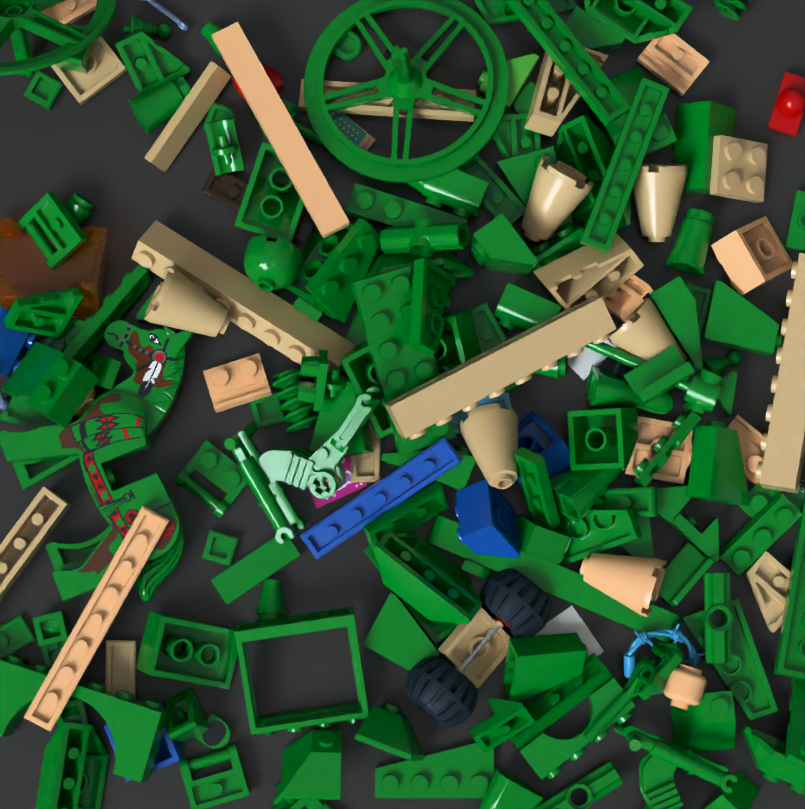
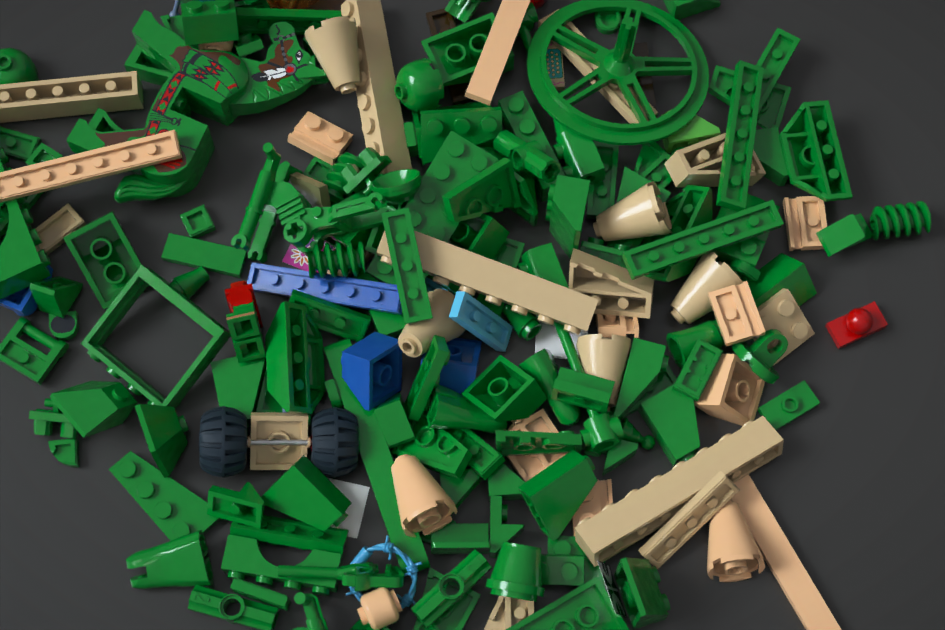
camera: 50 degrees right, 15 degrees down
(218, 470) = (249, 167): green plate -> none
(288, 434) = (311, 189): none -> olive tile
(351, 585) = (244, 322): none -> green hips
(354, 366) = (397, 185): none -> green piece
(372, 470) = (336, 260): none -> green piece
(442, 425) = (407, 265): none -> green plate
(526, 401) = (480, 321): none -> medium azure plate
(586, 764) = (260, 594): none -> green tile
(669, 152) = (744, 270): none -> green tile
(706, 197) = (736, 313): none -> light nougat plate
(713, 41) = (844, 234): none -> green slope
(720, 269) = (697, 369): none -> green plate
(752, 207) = (760, 357): none -> green tile
(755, 559) = (517, 572): none -> green piece

